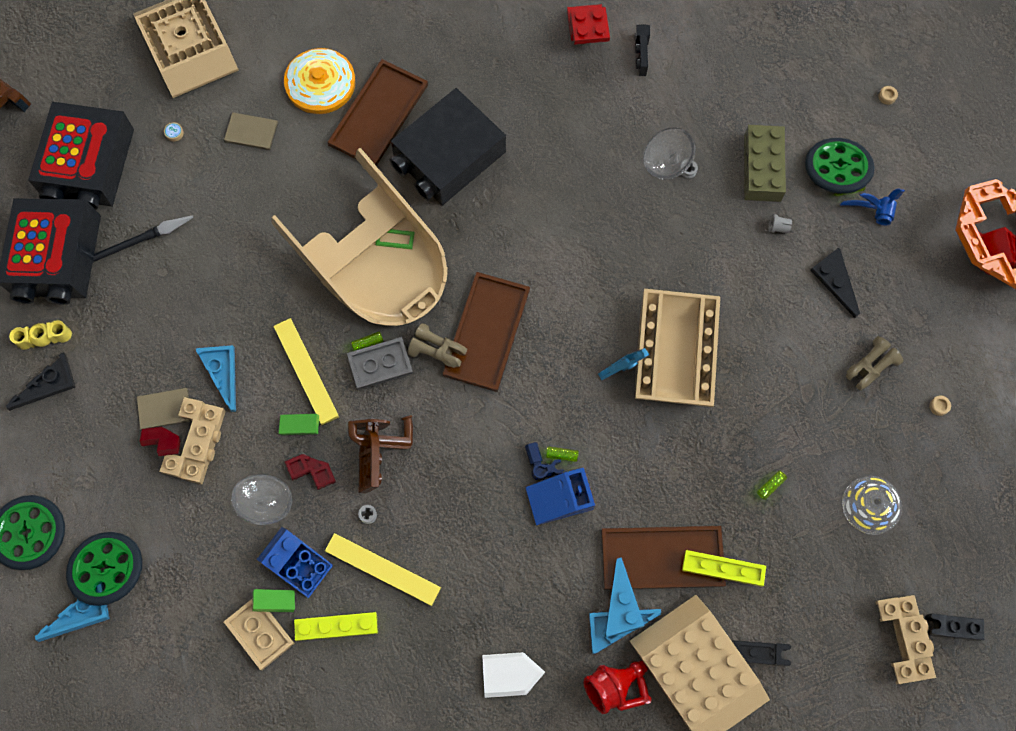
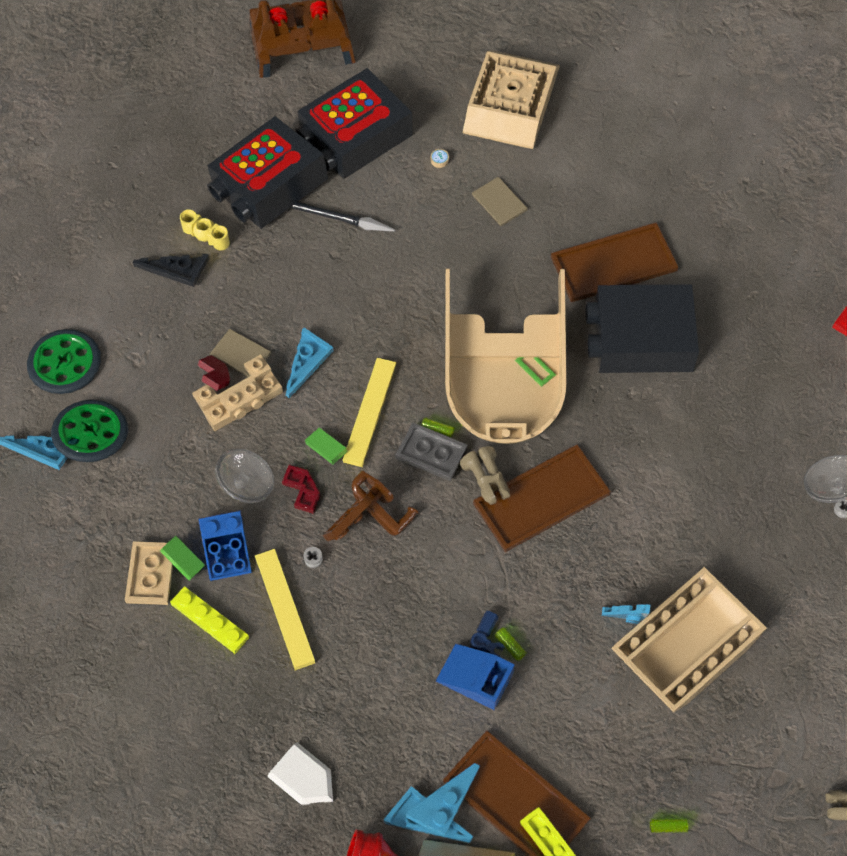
camera: 45 degrees right, 10 degrees down
(319, 81) = (590, 203): dish -> none

